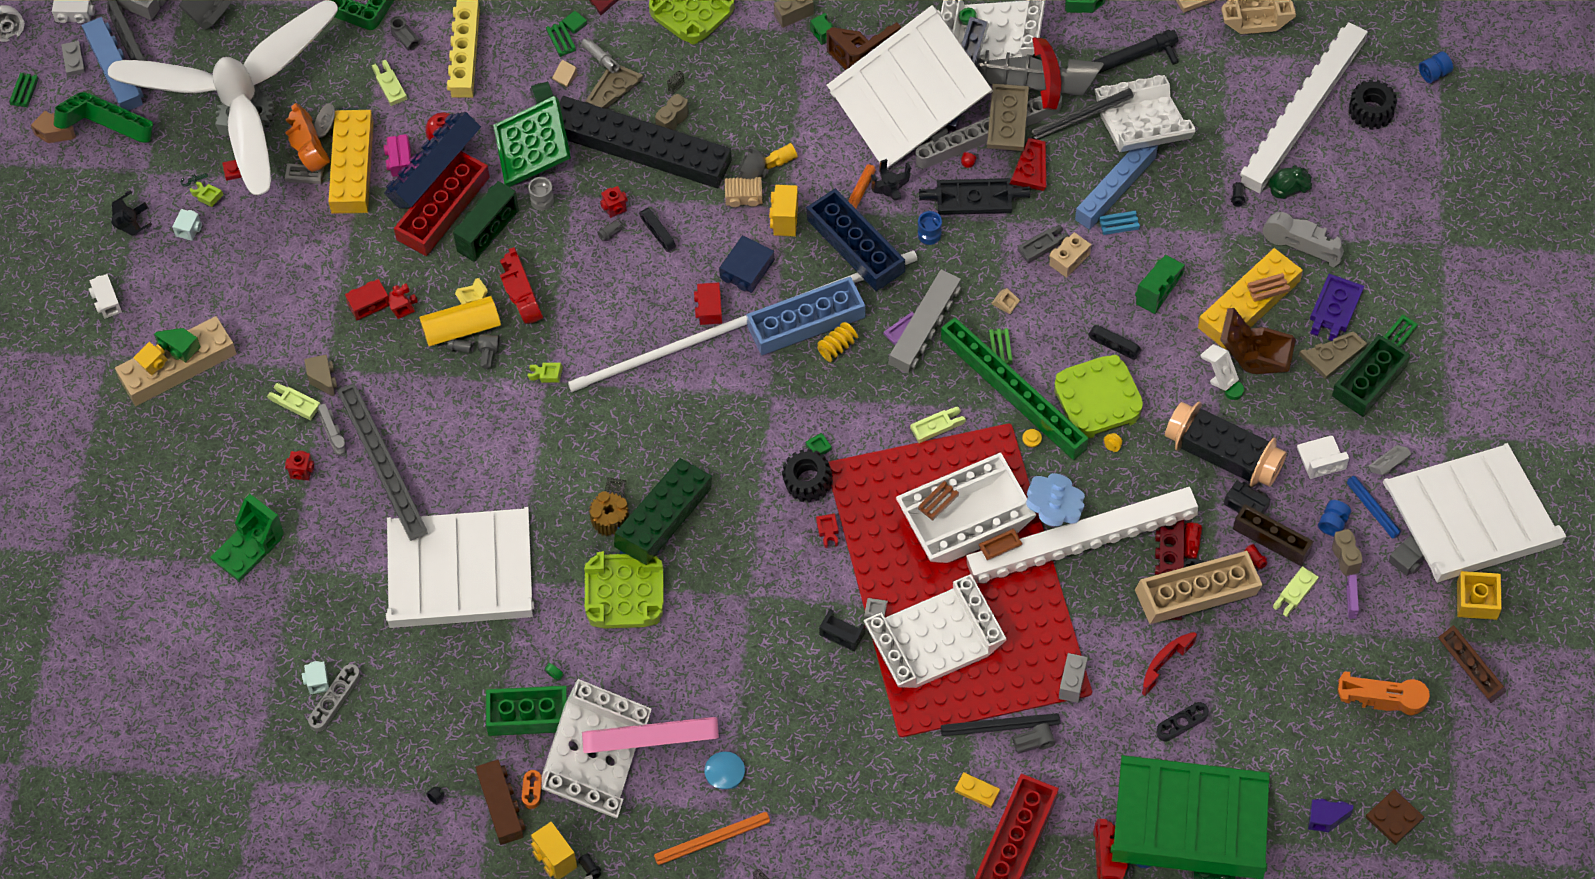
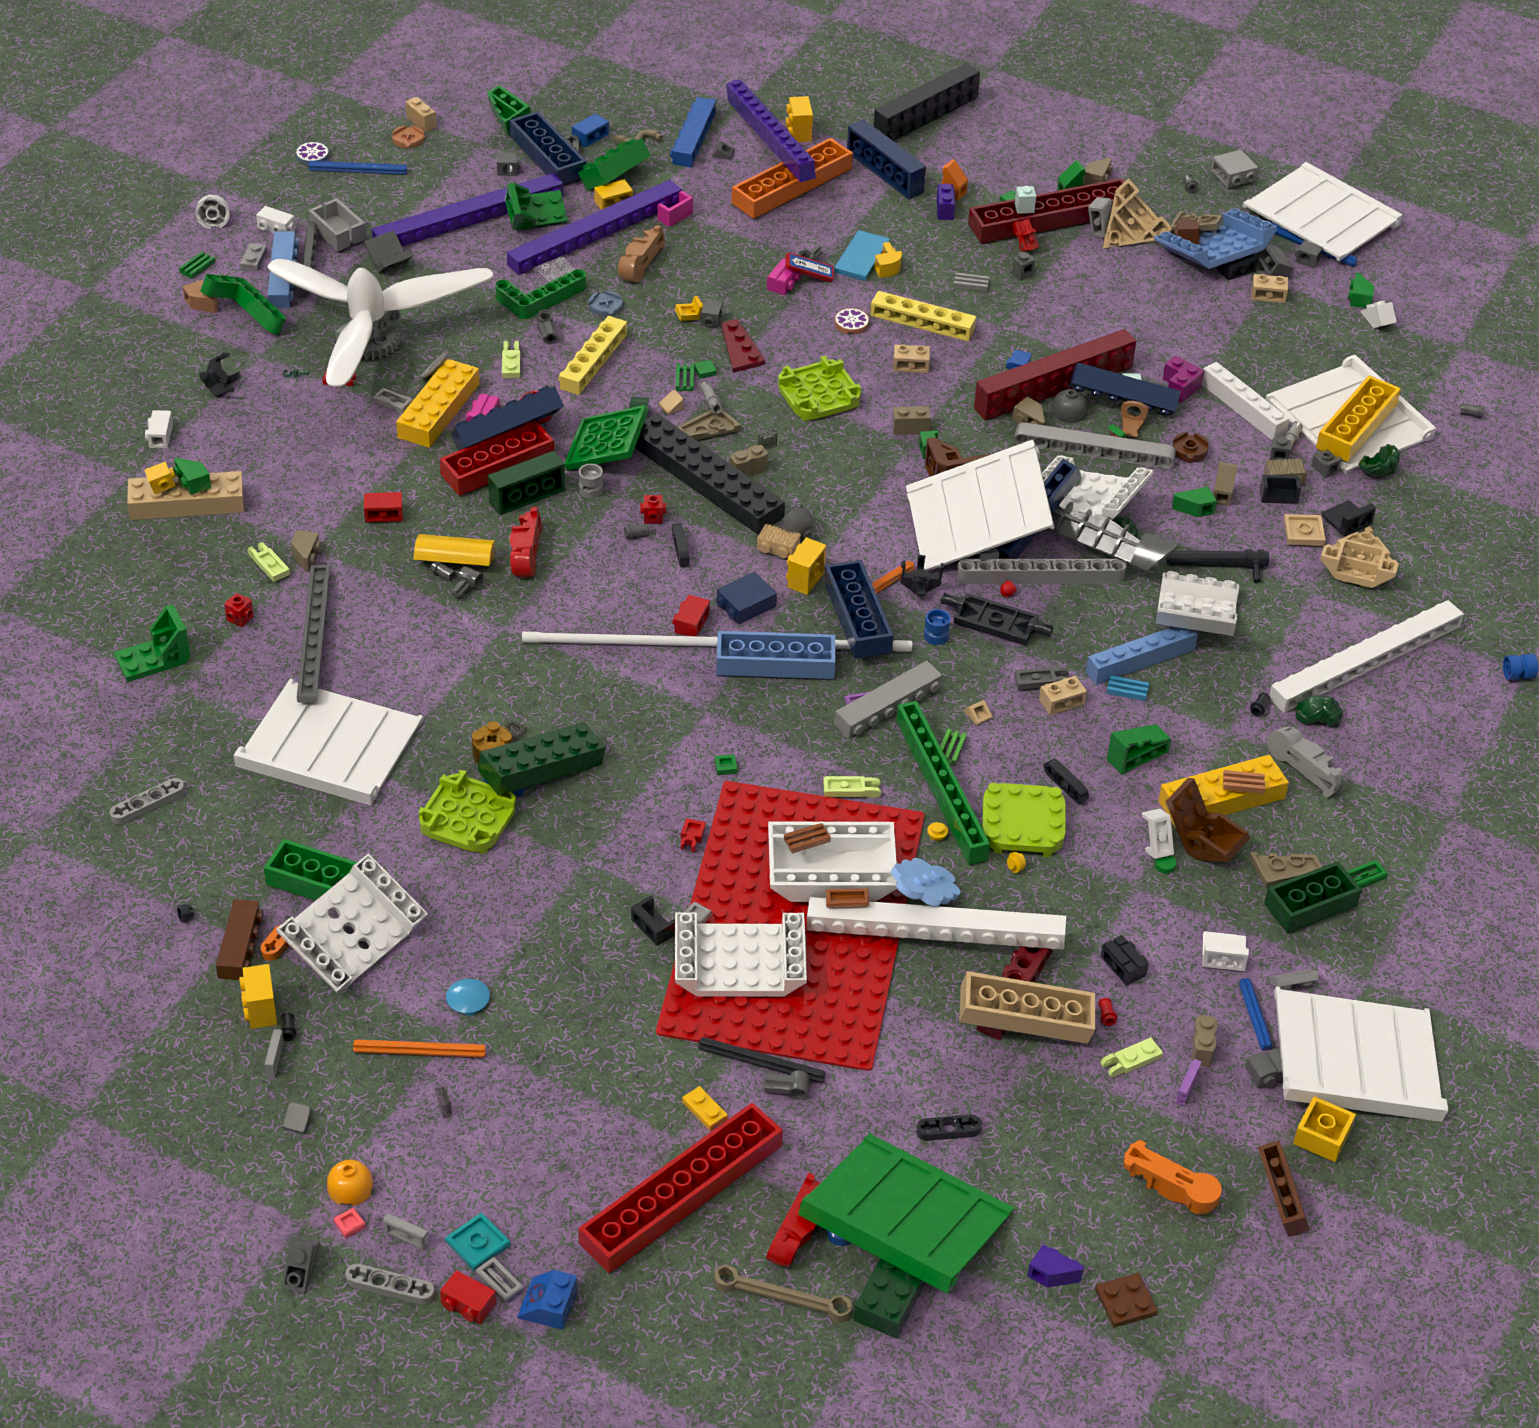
camera: 20 degrees right, 15 degrees down
(187, 224) = (265, 401): light aqua brick -> none
(208, 195) = (298, 387): lime plate -> none
(305, 139) = (408, 372): orange piece -> none
(316, 677) = (141, 777): light aqua brick -> none
(332, 431) = (286, 594): light grey hinge -> none
(399, 301) = (411, 519): red piece -> none
(472, 293) = (477, 533): light yellow bracket -> none
(547, 373) = (509, 619): lime plate -> none
(554, 672) = (358, 851): green tile -> none
(650, 735) = (412, 933): bright pink beam -> none
(781, 156) = (829, 527): yellow hinge -> none
(804, 462) = (698, 781): black tyre -> none
(836, 340) = (793, 685): yellow piece -> none
(1008, 117) = (1062, 562): dark tan plate -> none
(1031, 166) = (1065, 613): red wing -> none
(1051, 94) = (1115, 555): red slope -> none
(1073, 678) = (855, 1042): light grey brick -> none
(1082, 114) = (1139, 587): black axle -> none
(1180, 644) = (985, 1057): red slope -> none
(1192, 540) = (1050, 970): red hinge -> none
(1225, 444) = (1126, 898): black brick -> none
(1273, 535) = (1134, 996): dark brown brick -> none
(1334, 517) = (1209, 1003): blue wheel -> none
(1335, 305) = (1309, 829): dark purple tile -> none
(1369, 115) = (1437, 675): black tyre -> none

